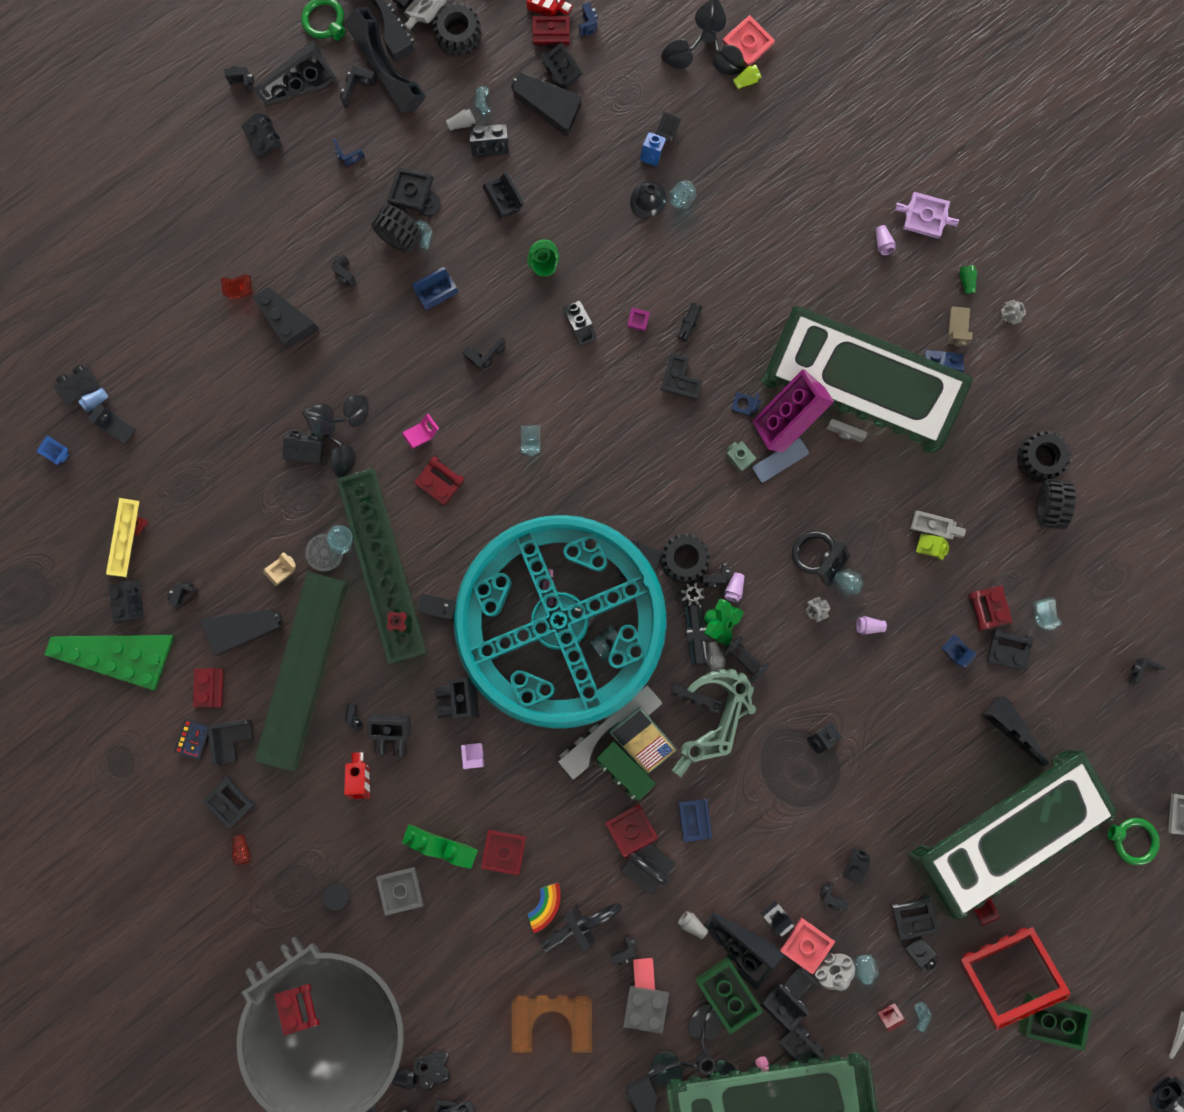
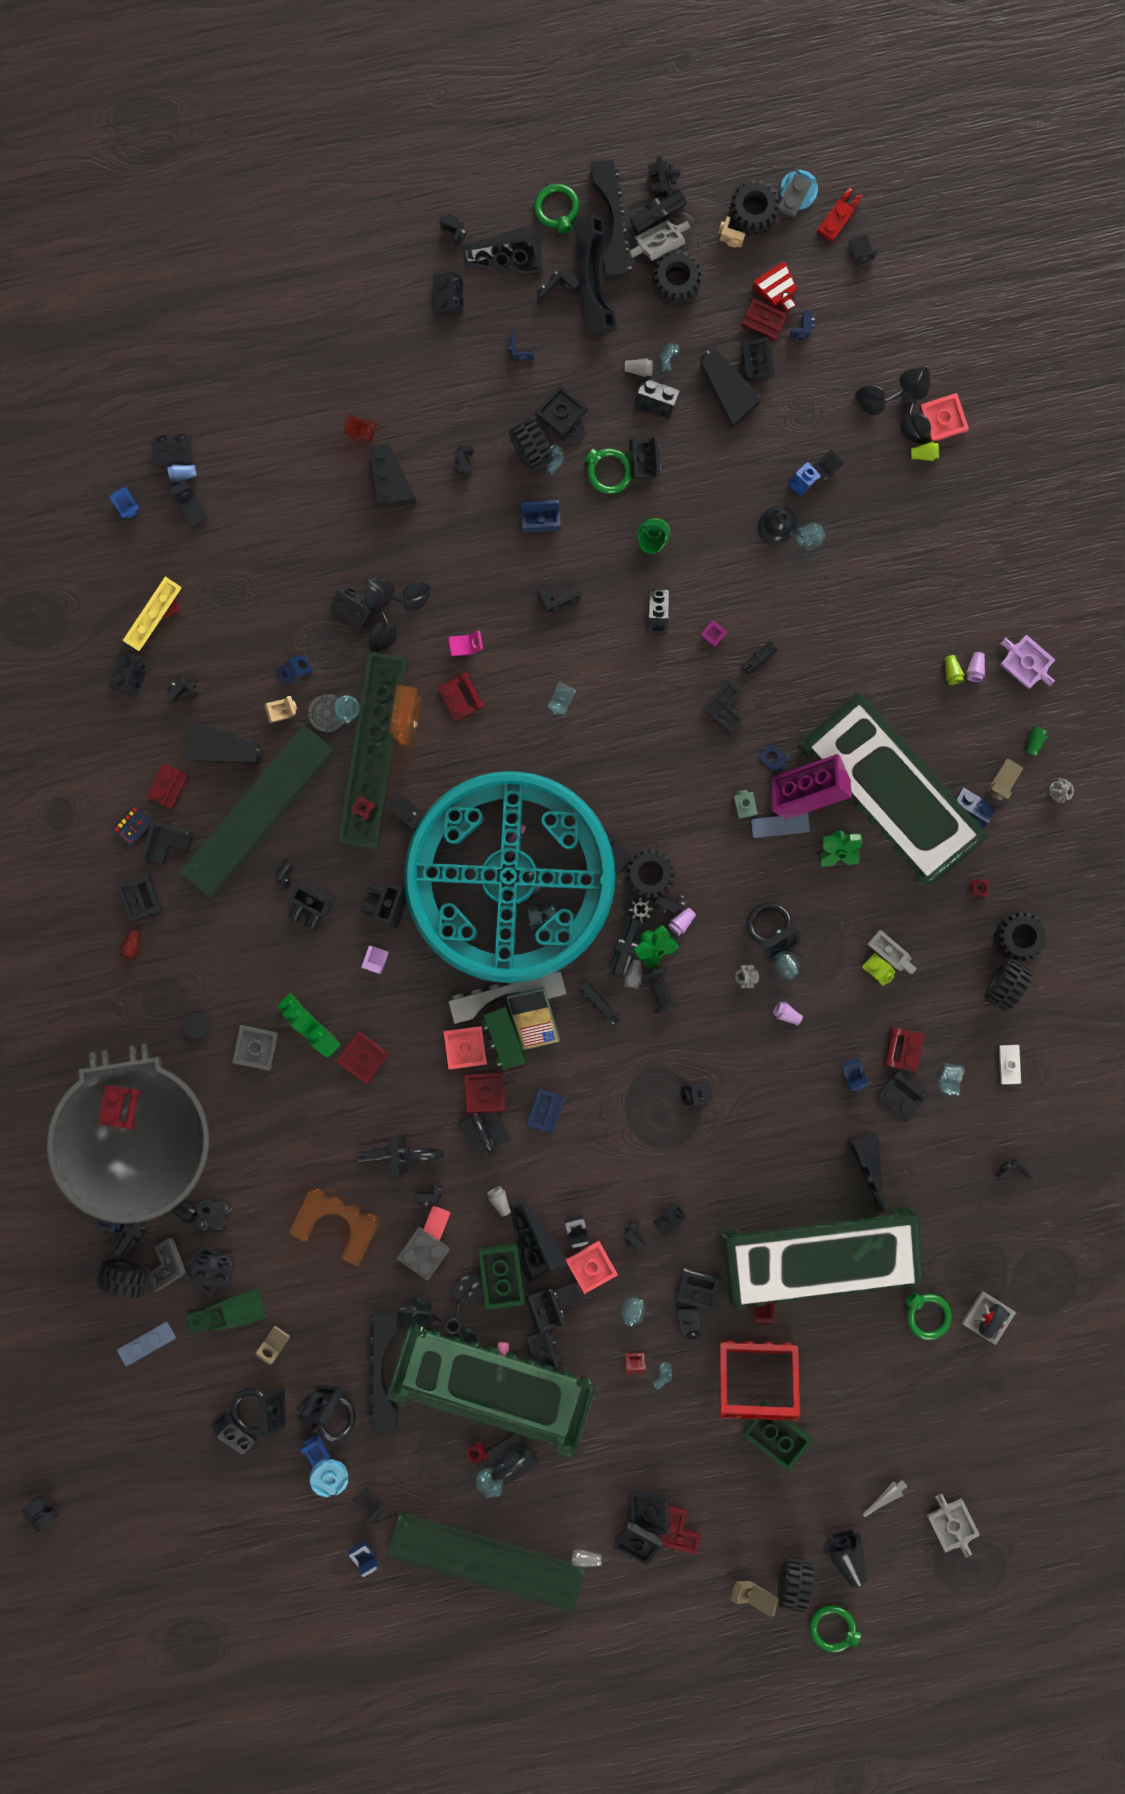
camera: 25 degrees right, 5 degrees up
(127, 658) = (105, 723): green wing -> none
(273, 529) = (290, 670): none -> dark blue bracket
(357, 786) = (262, 938): red torso -> none
(396, 518) = (406, 715): none -> clear orange arch
(458, 218) = (594, 457): none -> green piece
(547, 907) = (378, 1124): tile -> none
(593, 797) = (465, 1047): none -> coral plate
(724, 735) = (601, 1056): sand green piece -> none
(835, 972) = (605, 1301): light grey plate -> none
(845, 453) = (840, 847): none -> green plant
(846, 431) = (852, 826): light grey plate -> none
(865, 252) = (953, 671): none -> lime cone
(990, 433) = (984, 887): none -> dark red plate
(1091, 576) = (1009, 1064): none -> white plate

